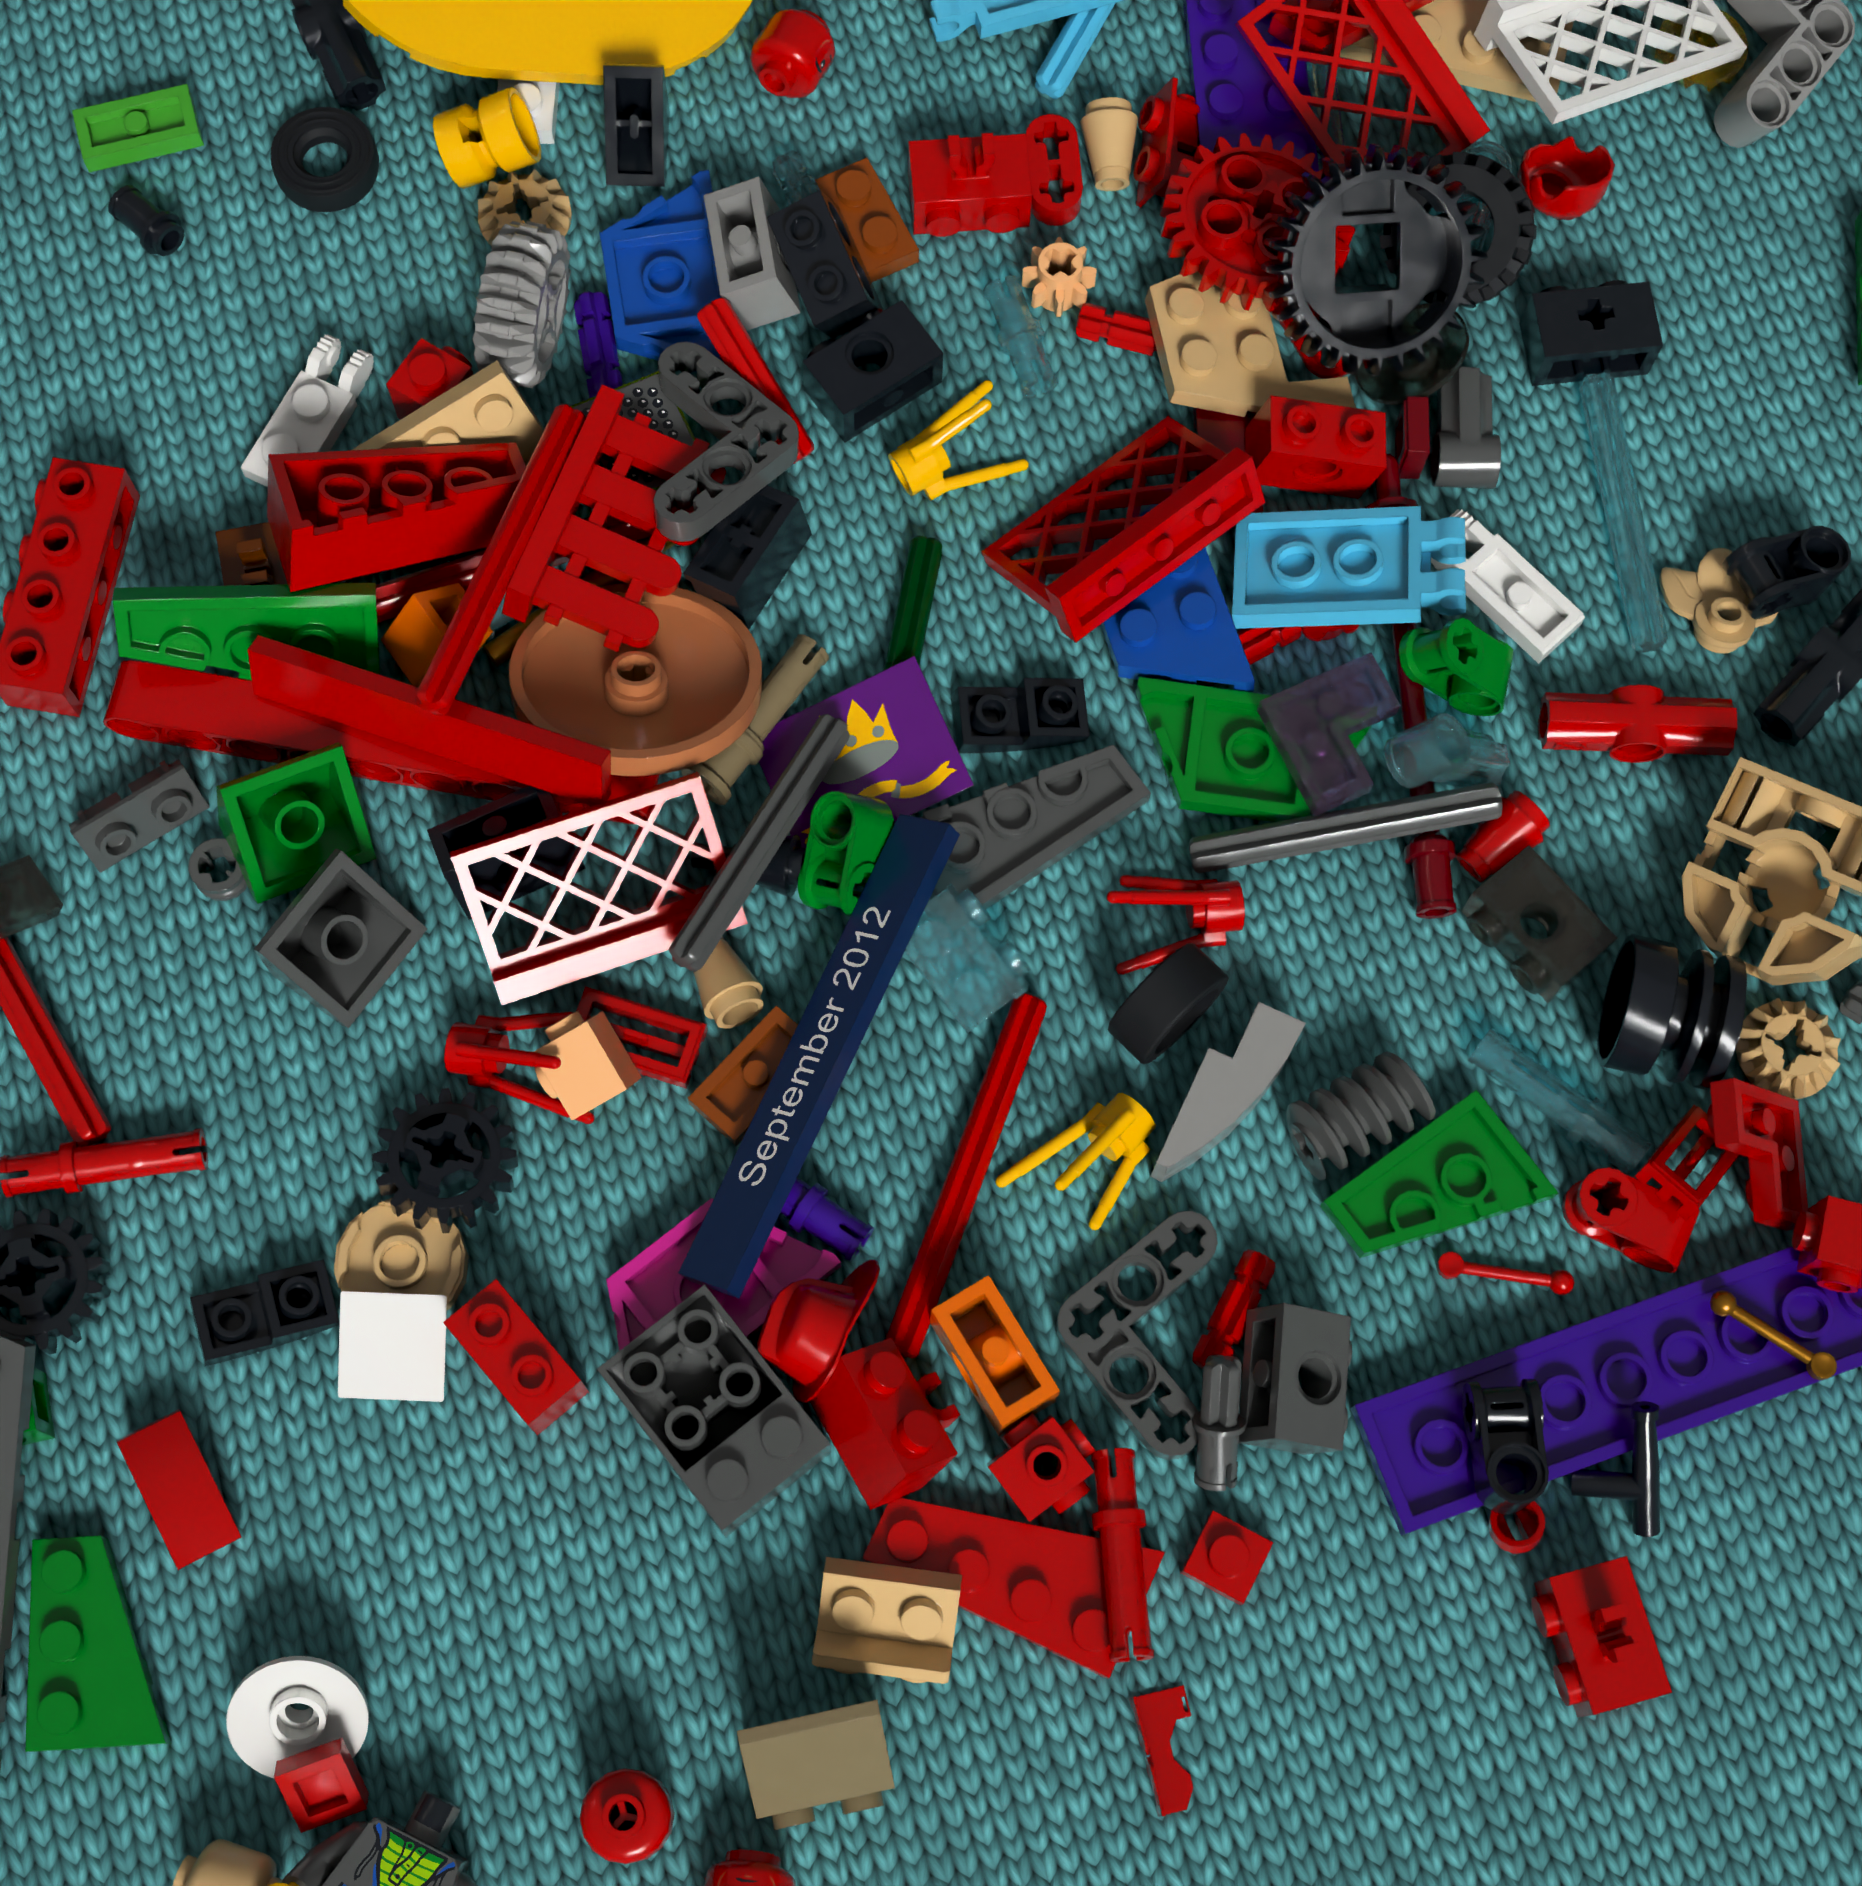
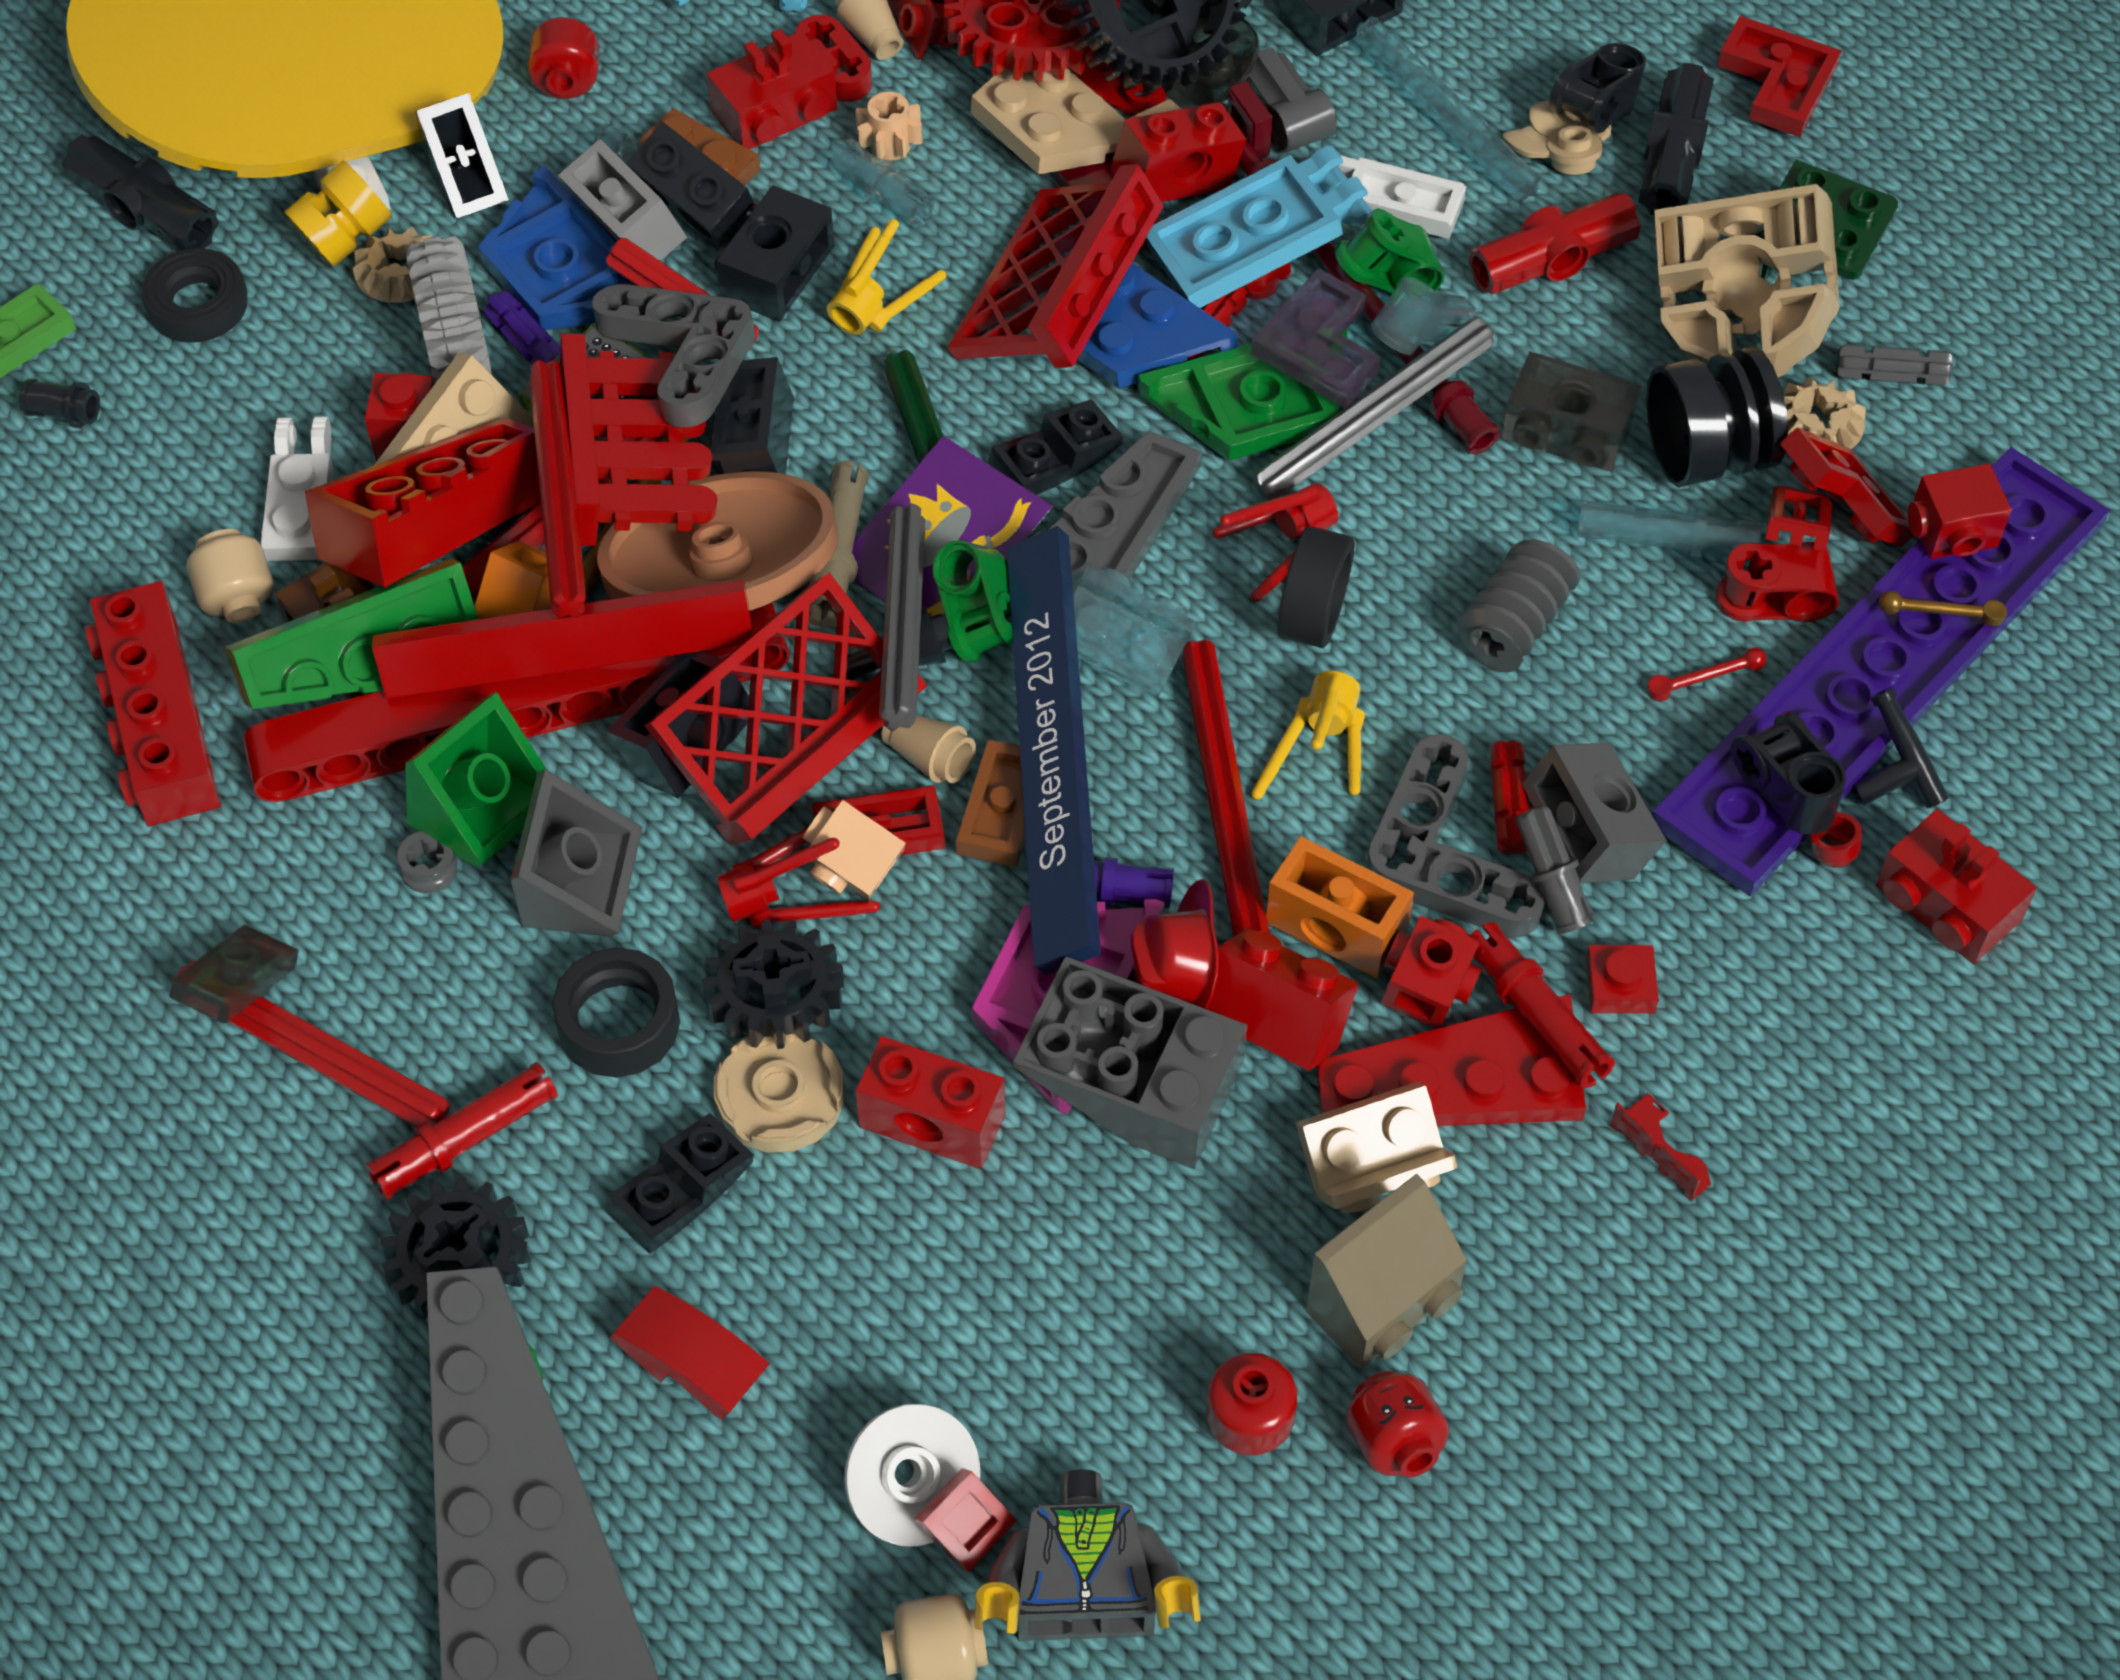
camera: 25 degrees left, 15 degrees down
(83, 1654) = (682, 1532): green wing -> none
(123, 826) = (332, 848): dark grey hinge -> none
(196, 485) = (229, 575): none -> tan head
(273, 1072) = (606, 970): none -> black tyre
(392, 1346) = (812, 1153): white sticker -> none
(1121, 329) = (962, 146): red axle -> none
(1228, 1089) = (1400, 634): light grey slope -> none
(1437, 1181) = (1612, 627): green wing -> none
(1503, 838) = (1502, 364): red cone -> none

